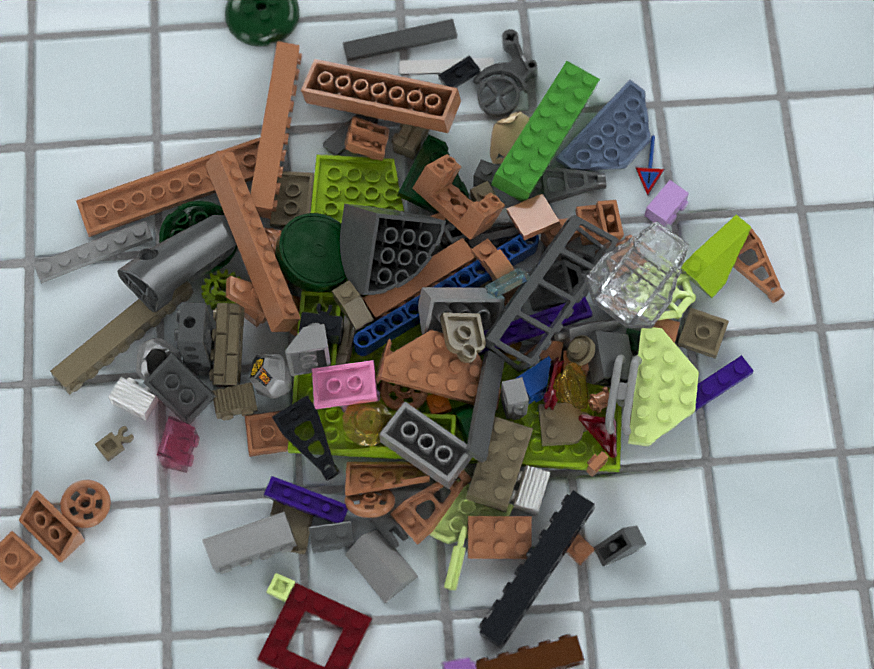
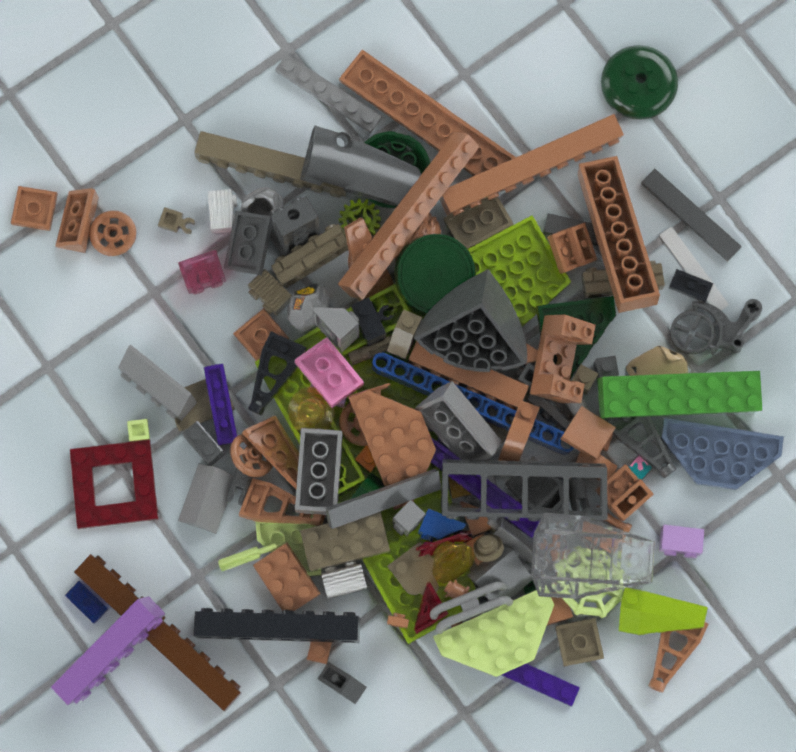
camera: 55 degrees right, 10 degrees up
(463, 334) = (434, 442): dark tan plate -> none
(507, 282) = (506, 449): clear light blue tile -> none
(584, 199) = (640, 467): none -> tile
(649, 175) = (702, 509): piece -> none

